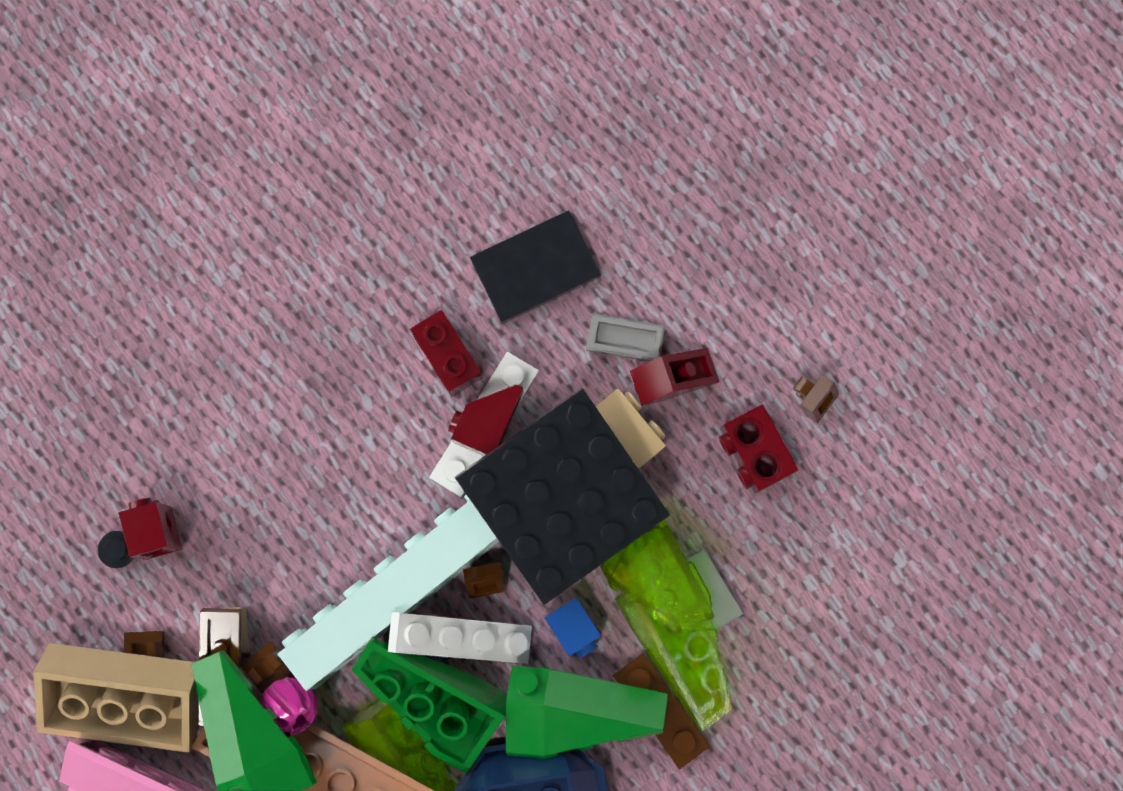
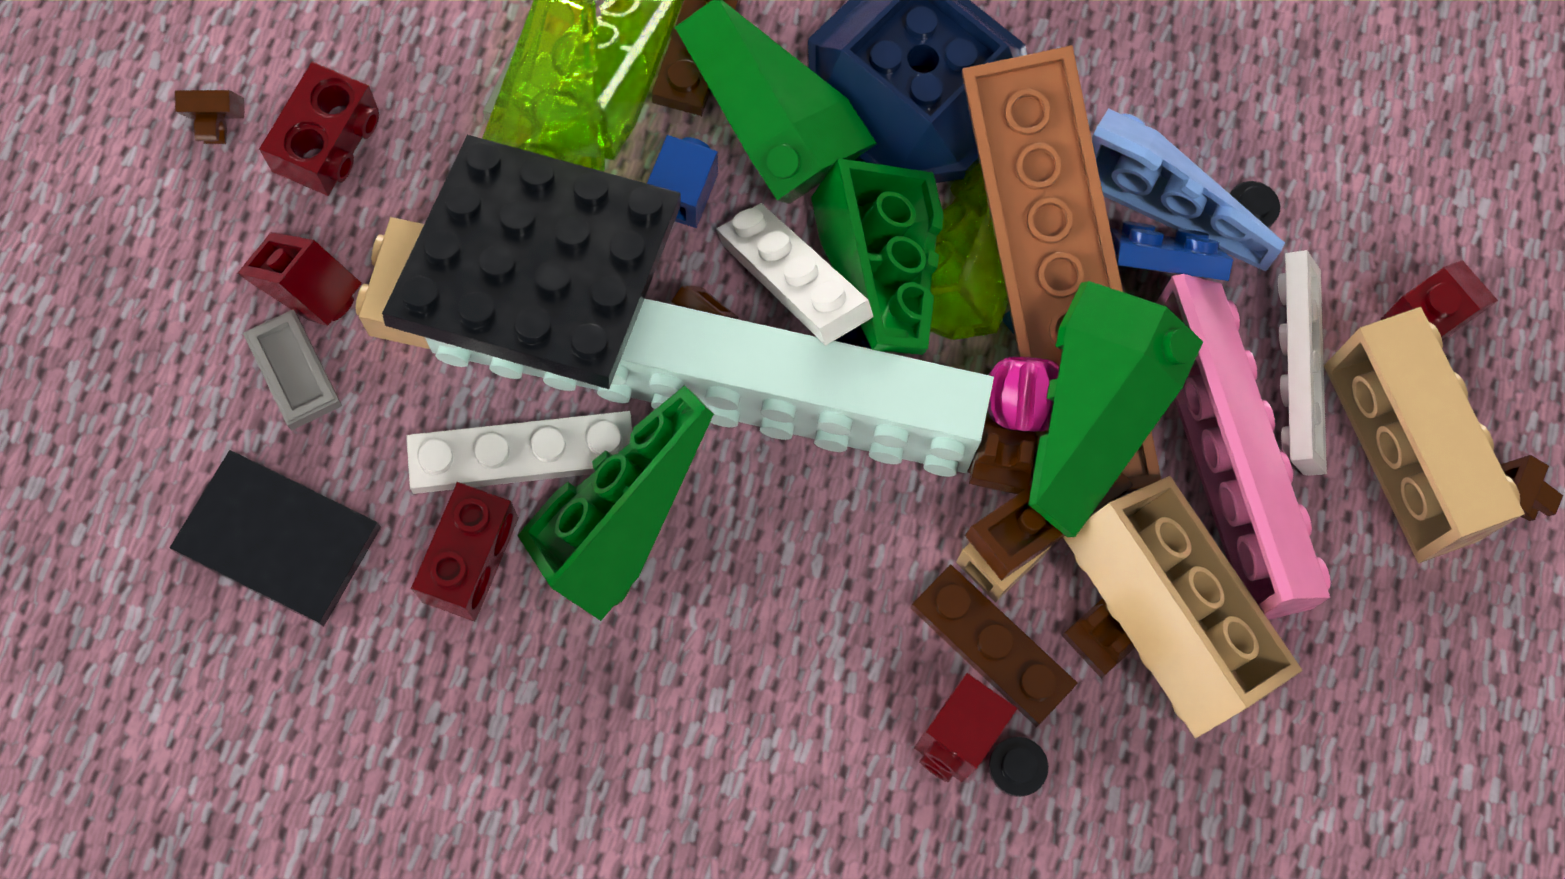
camera: 130 degrees left, 10 degrees down
(186, 589) = (993, 645): none -> reddish brown plate
(403, 437) = (599, 534): none -> green wedge
(485, 420) = (513, 431): dark red slope -> none

